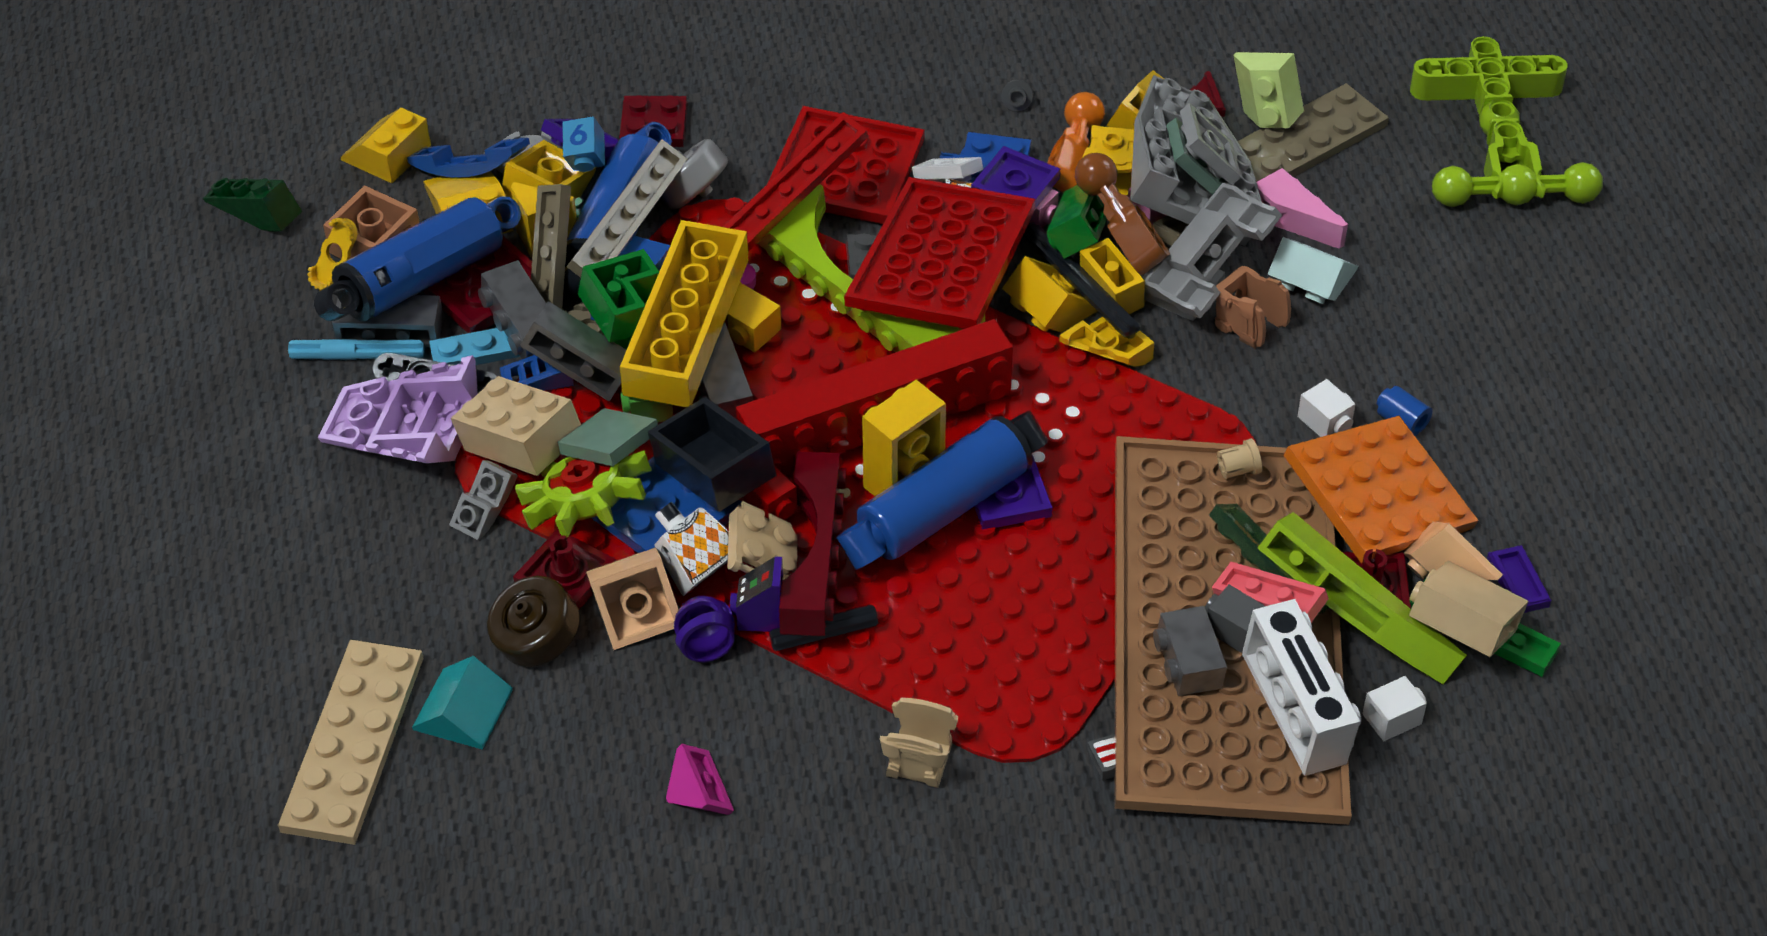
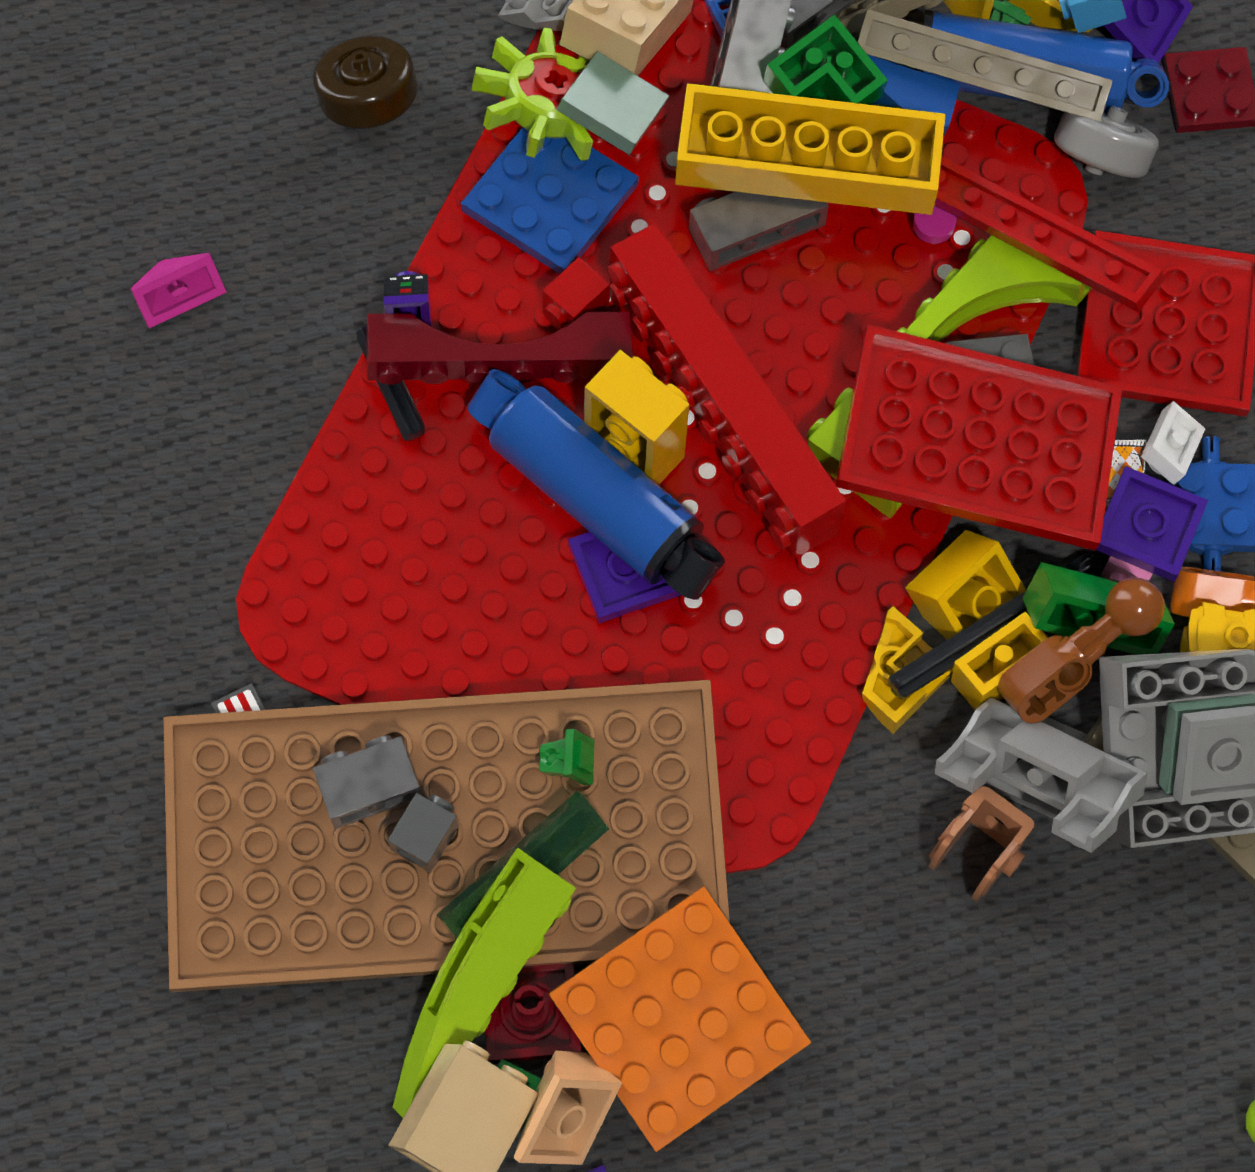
camera: 80 degrees right, 20 degrees up
(464, 704) = (261, 42): teal slope -> none
(566, 562) = (448, 110): dark red plate -> none
(634, 598) = (412, 177): light nougat slope -> none
(691, 546) = (475, 222): torso -> none
(704, 628) = (377, 254): dark purple helmet -> none
(712, 453) = (587, 210): black piece -> none
(752, 318) = (858, 238): yellow slope -> none
(759, 539) = (486, 294): tan plate -> none
(922, 741) = (211, 492): tan piece -> none
(1179, 520) = (569, 757): none -> green brick
(1240, 460) = (679, 829): tan bush -> none
(1272, 588) = (454, 868): coral plate -> none
(1301, 687) = (311, 908): white brick -> none
(1302, 210) = (1195, 894): bright pink slope -> none
(1311, 270) = (1079, 929): light aqua slope -> none
(1326, 409) = (817, 953): white brick -> none
(1394, 708) = (335, 1042): white brick -> none
(1401, 403) = (832, 1053): blue brick -> none

